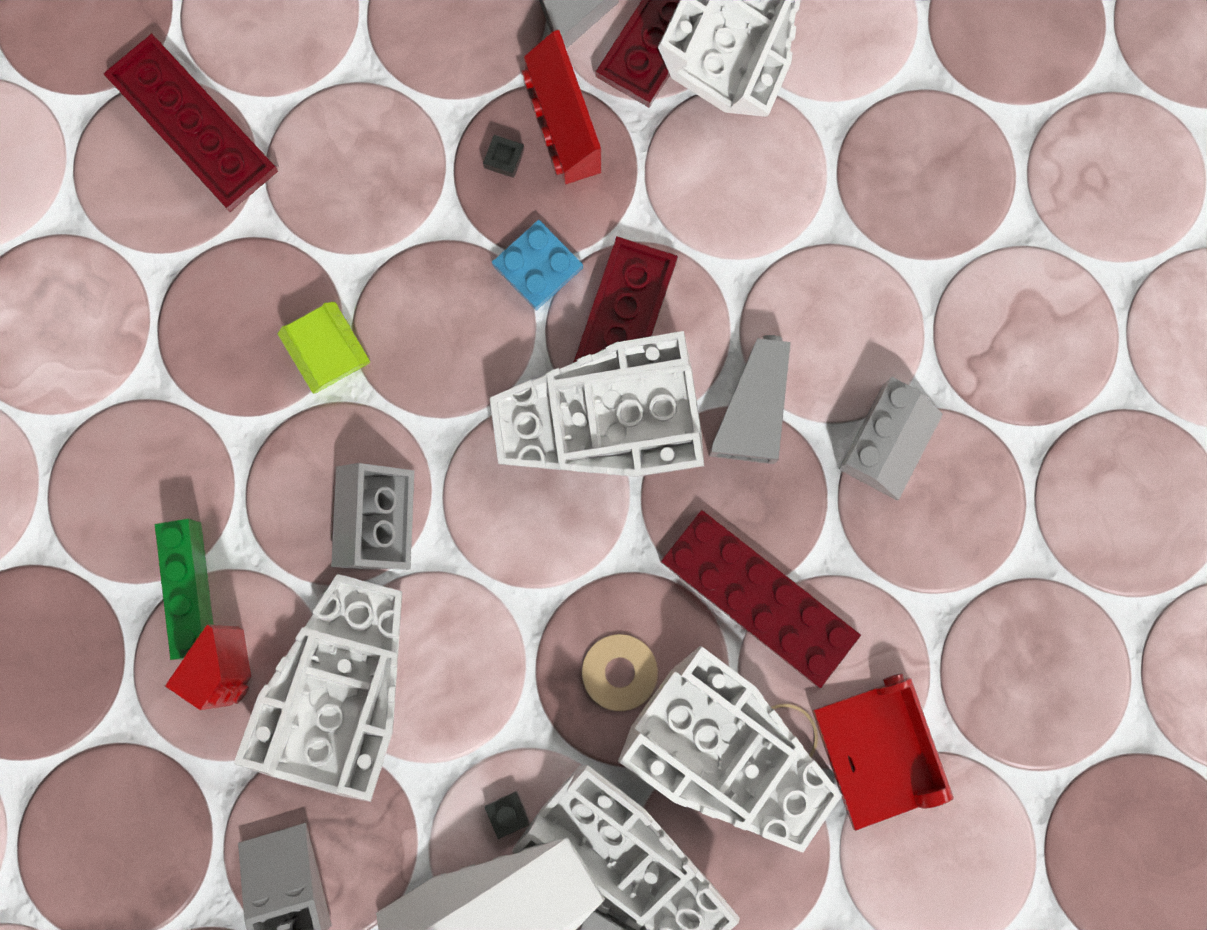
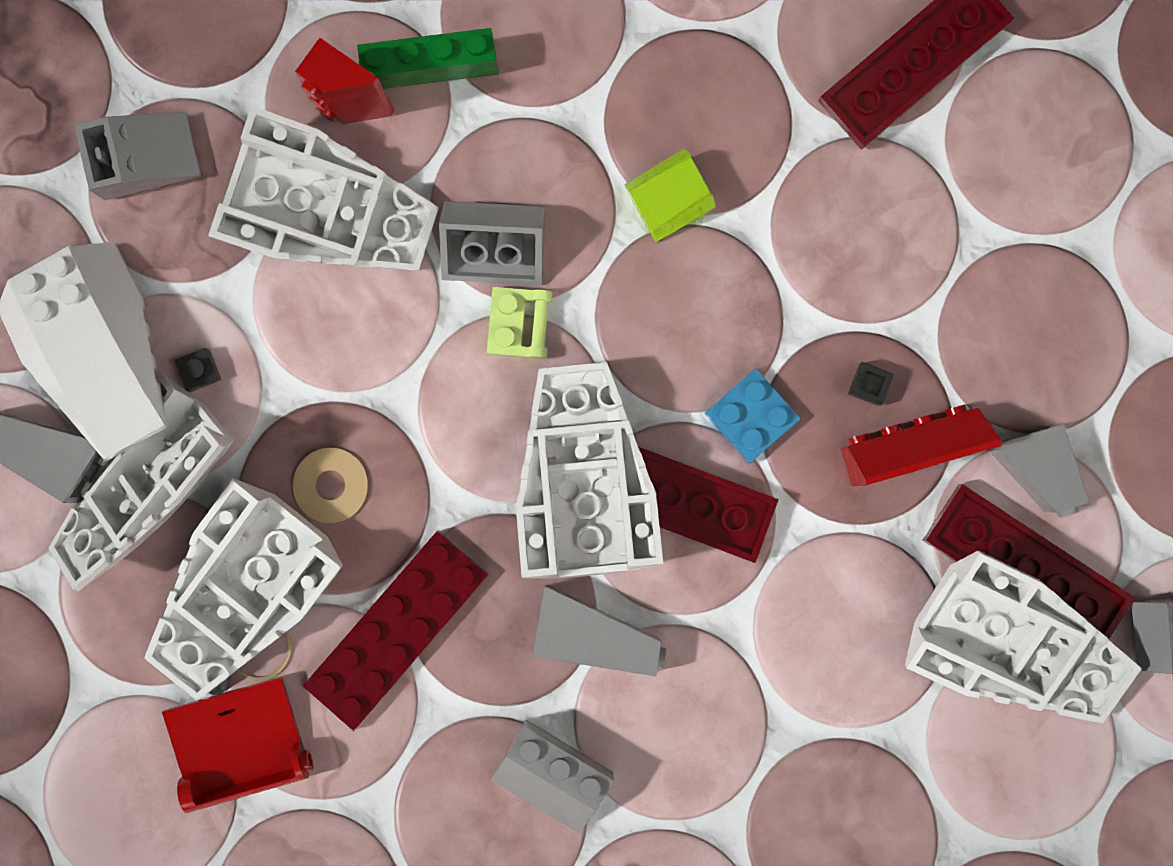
camera: 95 degrees right, 5 degrees up
(451, 501) = (507, 322): none -> yellowish green plate

